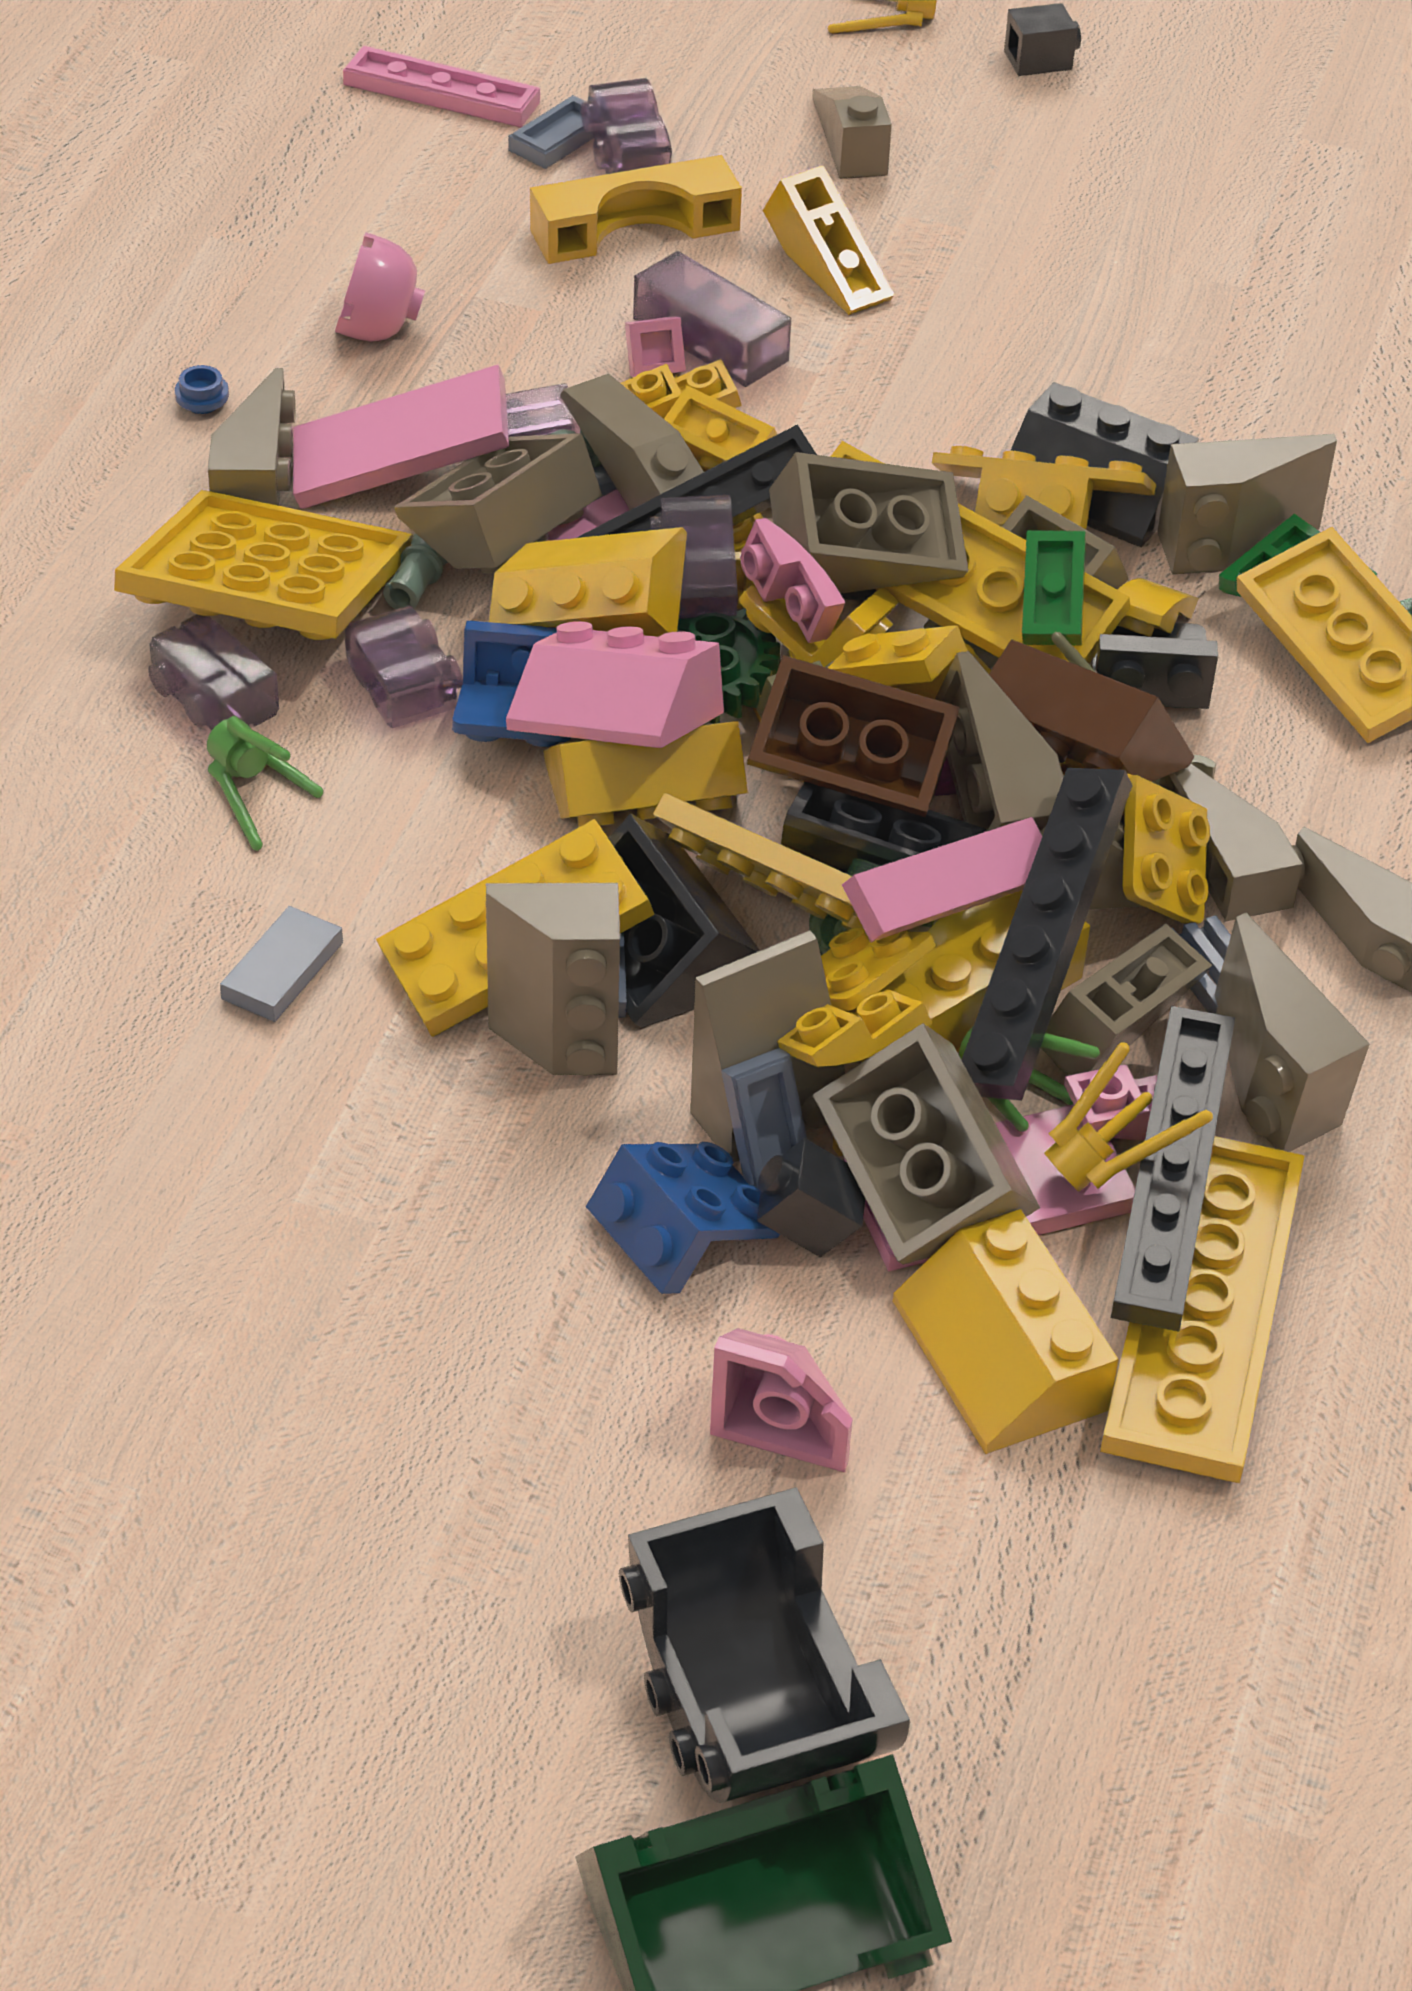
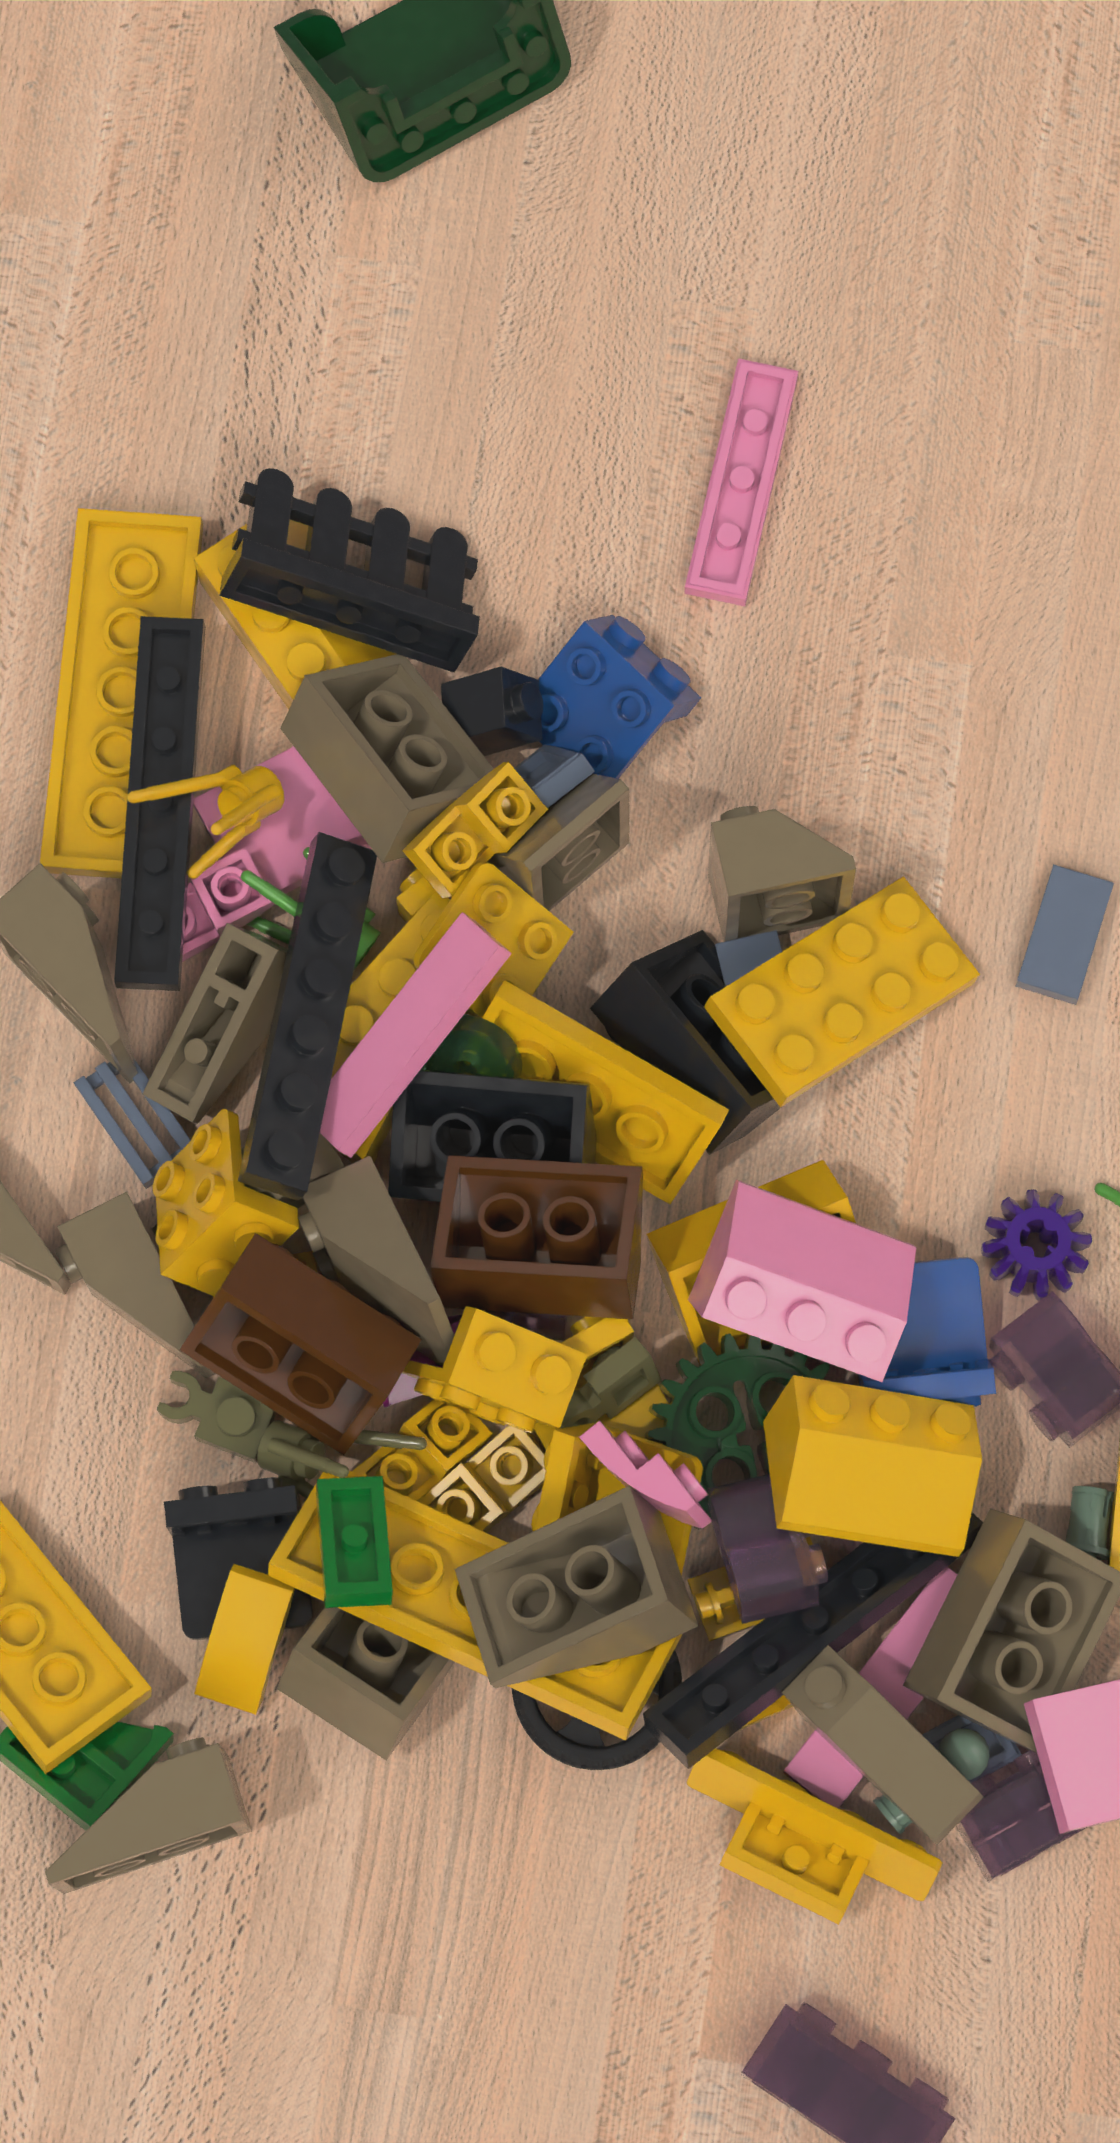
camera: 175 degrees right, 30 degrees up
(392, 744) = (1052, 1230): none -> dark purple gear
(486, 1397) = (741, 482): none -> bright pink tile
(655, 344) = (906, 2019): bright pink tile -> none
(661, 390) = (858, 1950): yellow slope -> none
(753, 1651) = (447, 199): black cylinder -> none
(777, 1400) = (488, 495): bright pink slope -> none
(980, 1277) = (343, 599): none -> black fence
(1058, 485) = (395, 1820): yellow bracket -> none
(1091, 429) = (331, 1895): black slope -> none

